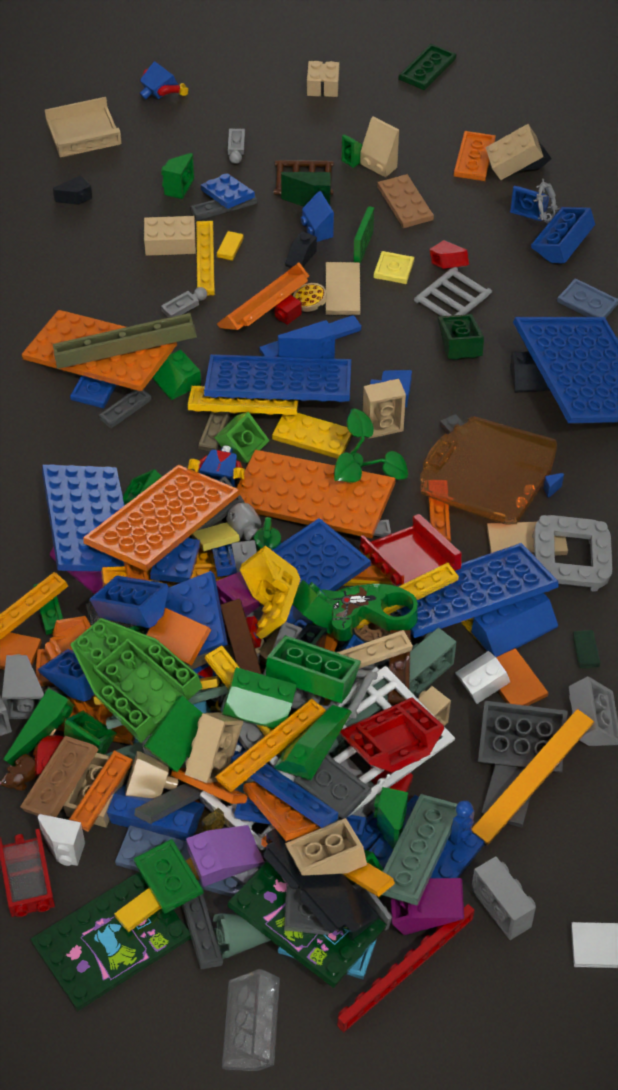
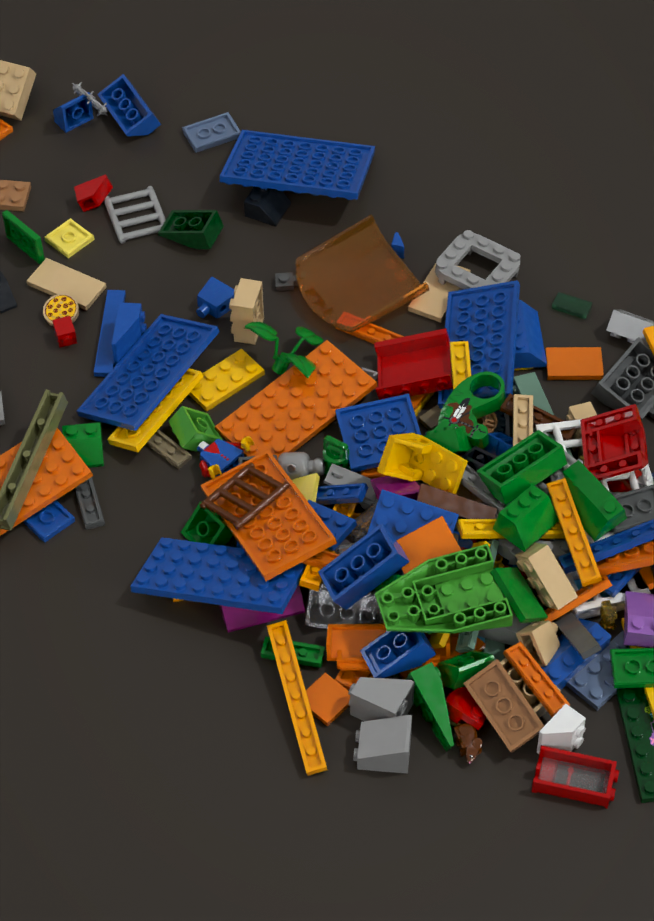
camera: 60 degrees left, 0 degrees up
(168, 478) = (251, 511): none -> reddish brown bar
(266, 299) = (41, 341): orange slope -> none
(483, 677) = (562, 378): white slope -> none

